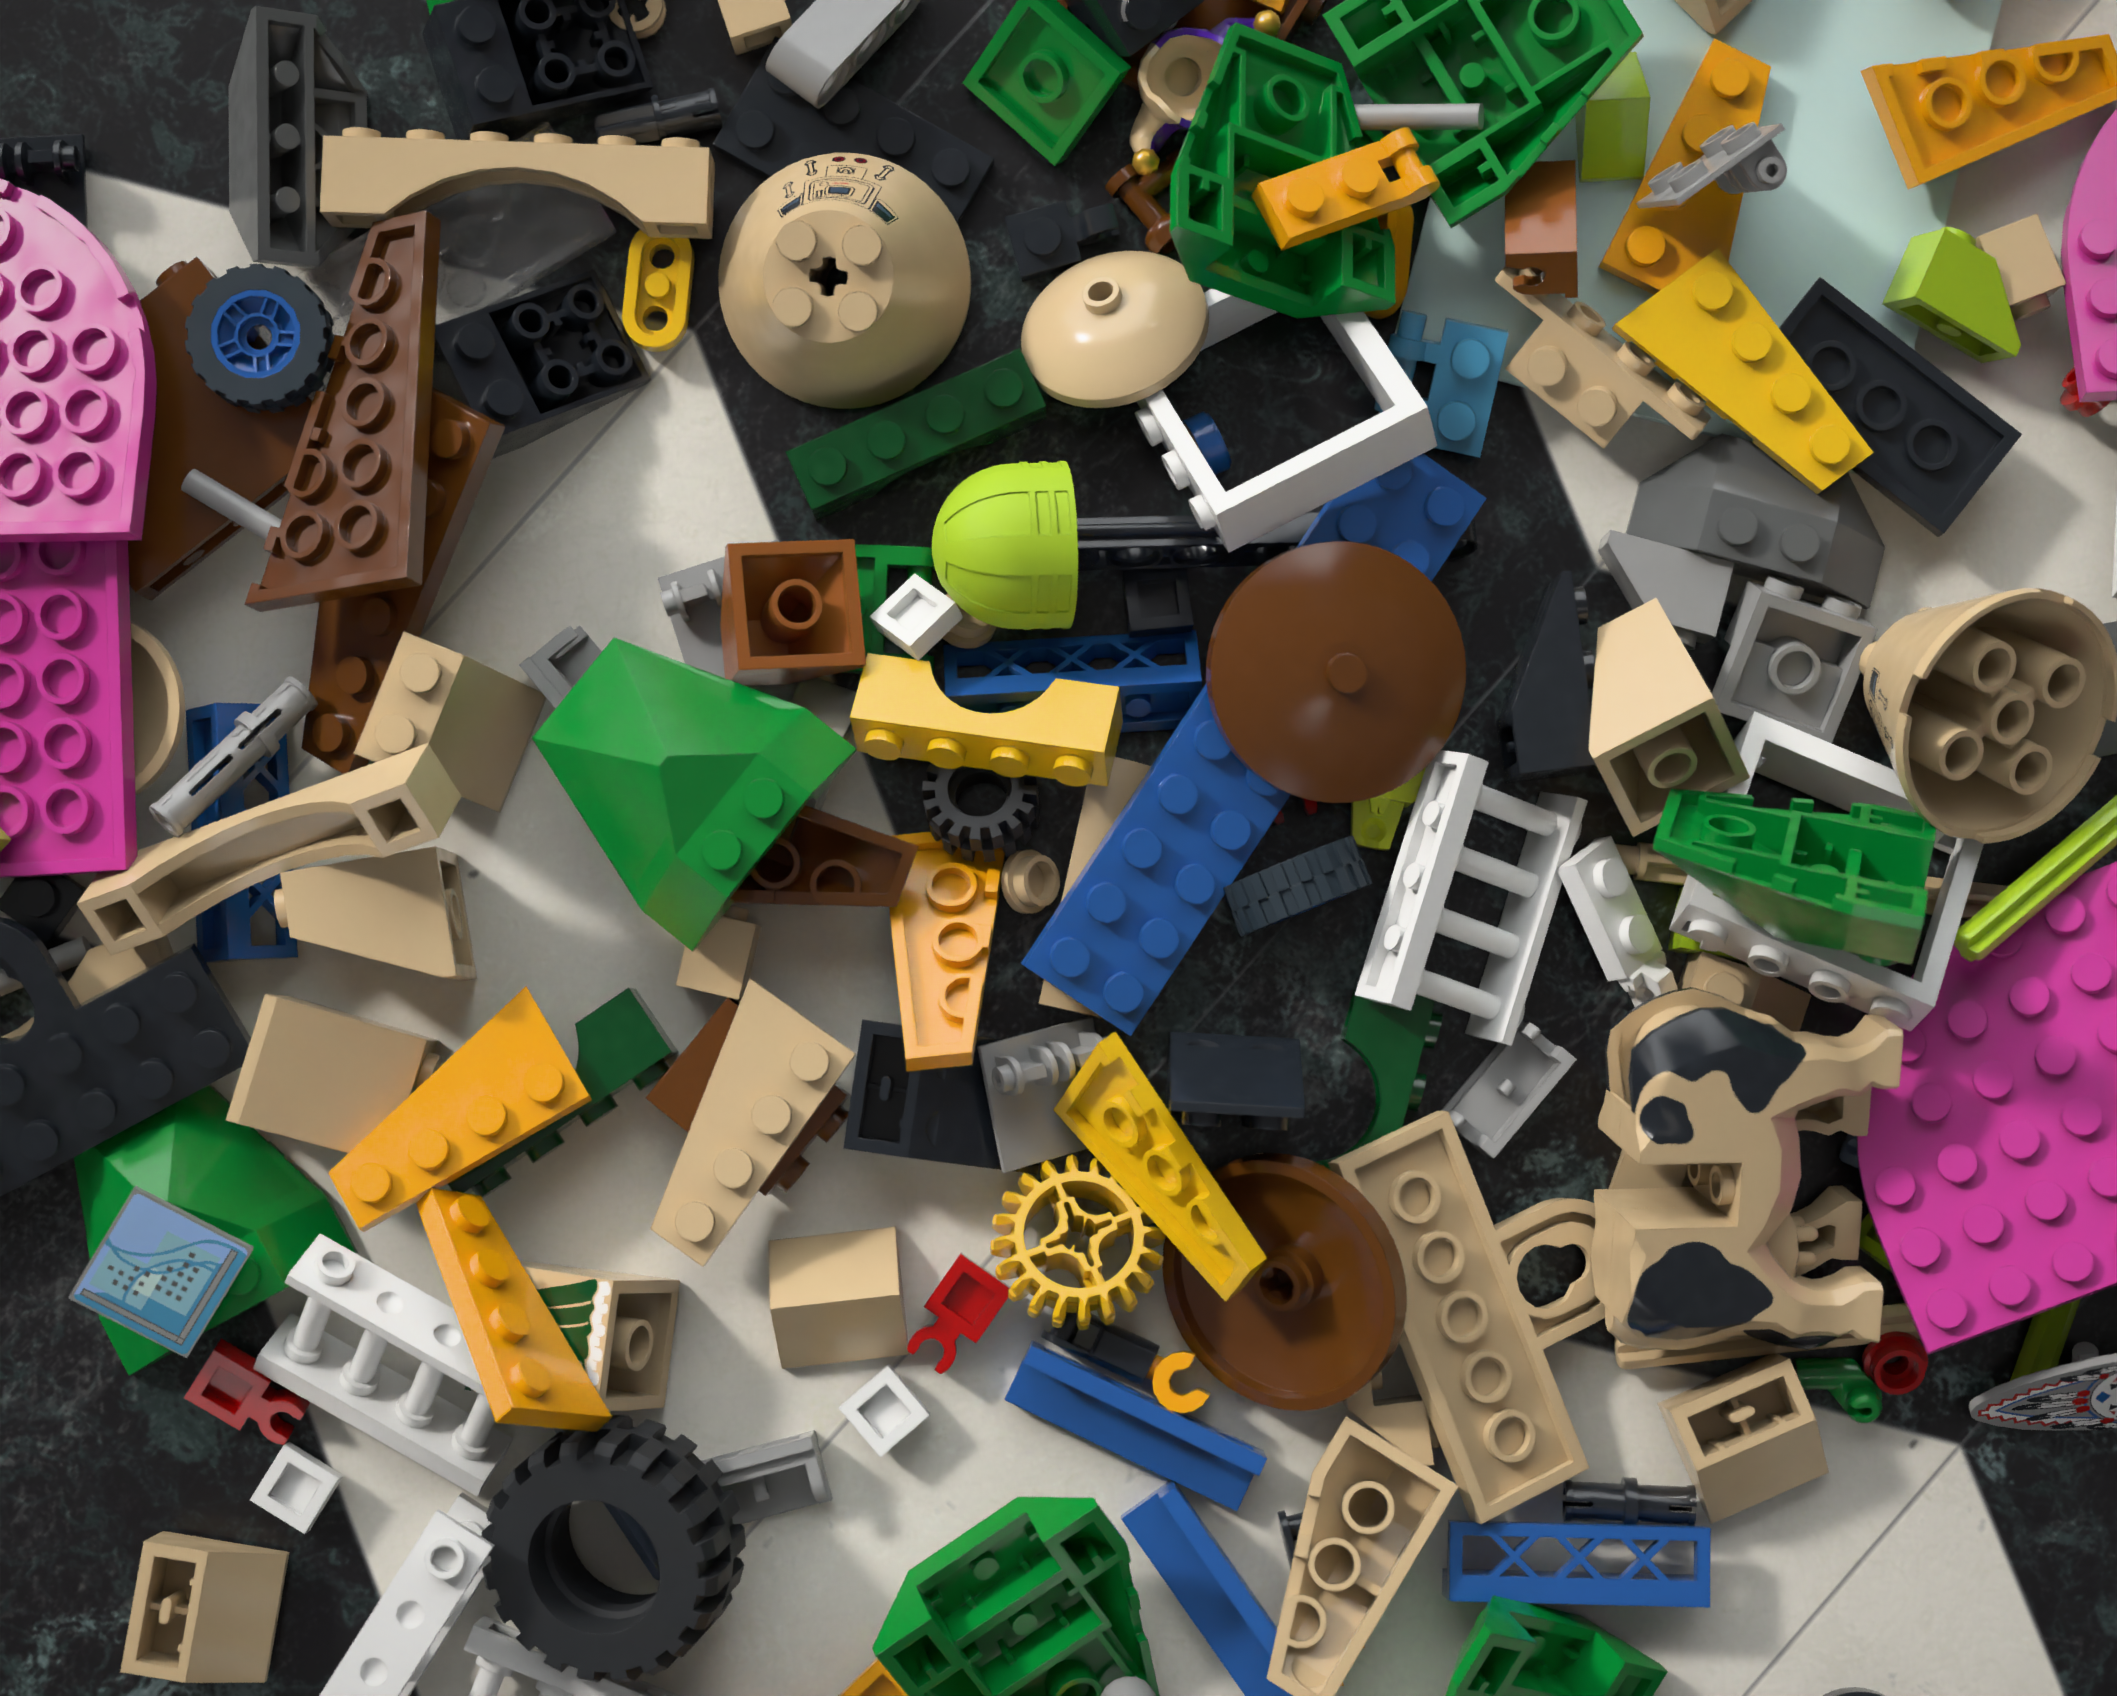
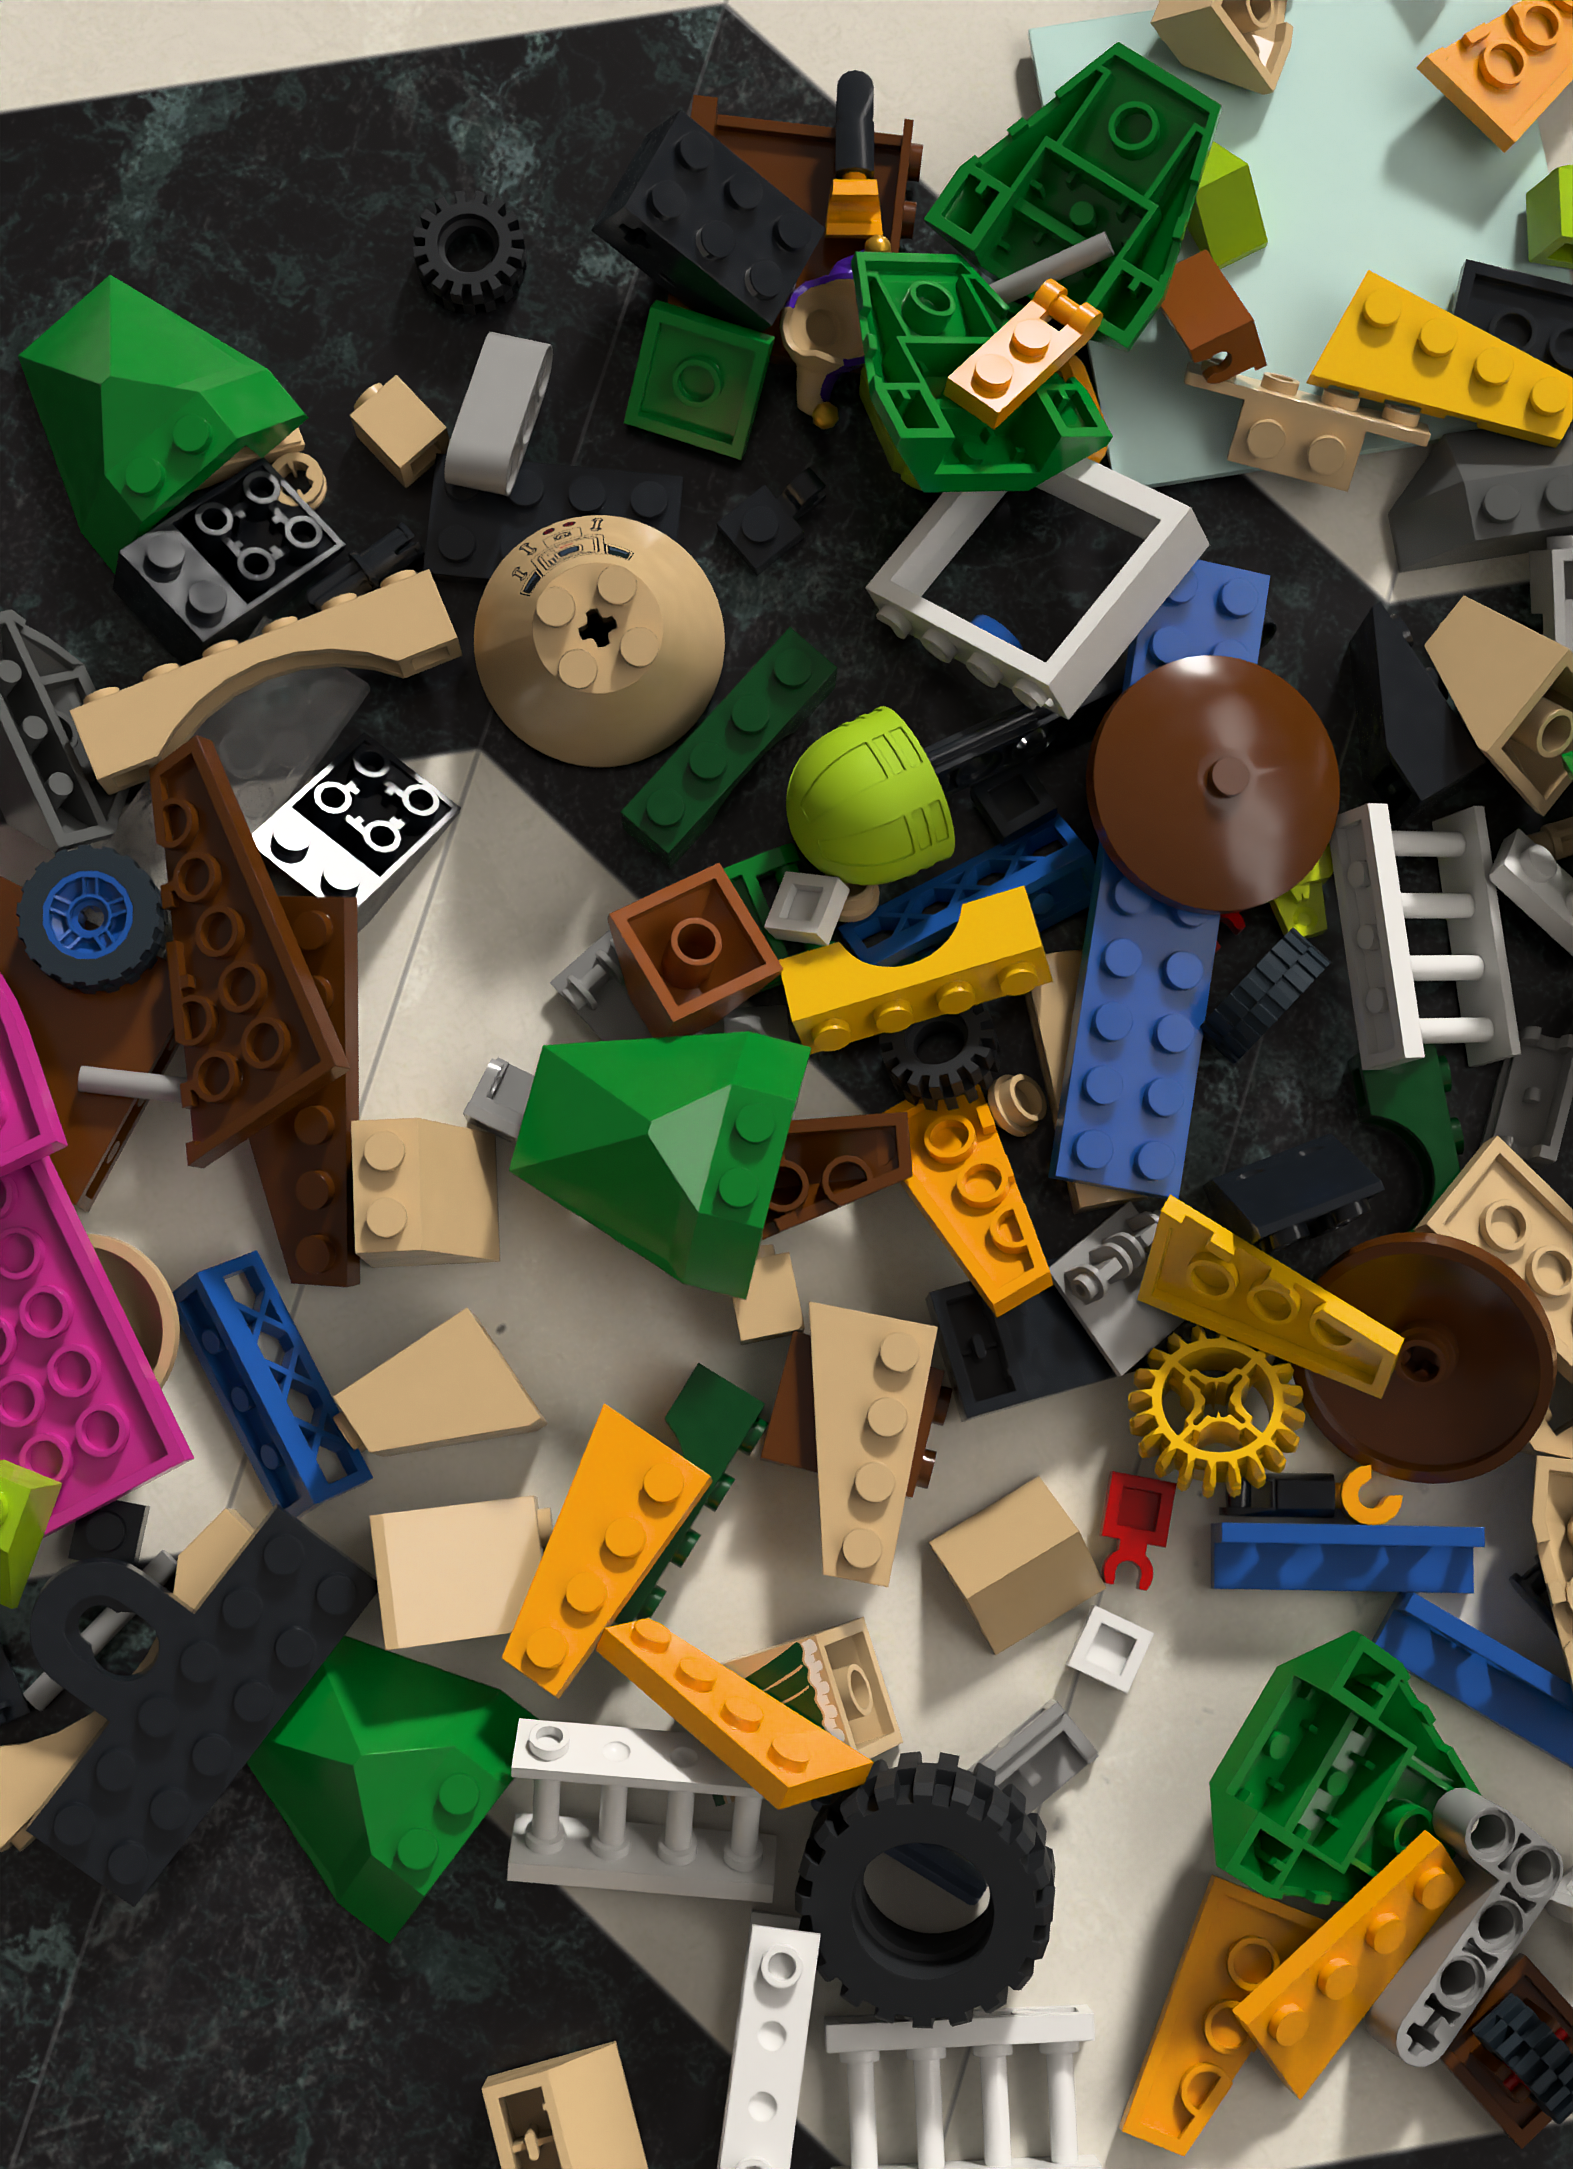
camera: 30 degrees left, 5 degrees down
(160, 1272) = (387, 1822): piece -> none
(236, 1391) = (498, 1909): plate -> none
(287, 704) = (262, 1247): light grey pin -> none
(296, 1487) = (596, 1975): white plate -> none
(356, 813) = (389, 1302): tan arch -> none
(657, 289) = (433, 724): yellow plate -> none
(1114, 329) = (866, 574): tan dish -> none
(1139, 194) = (827, 451): reddish brown piece -> none
(1462, 378) = (1193, 473): dark azure plate -> none
(1666, 241) = (1313, 222): light orange wing -> none
(1684, 582) = (1438, 579): light grey slope -> none
(1734, 158) = (1344, 190): light grey hinge -> none

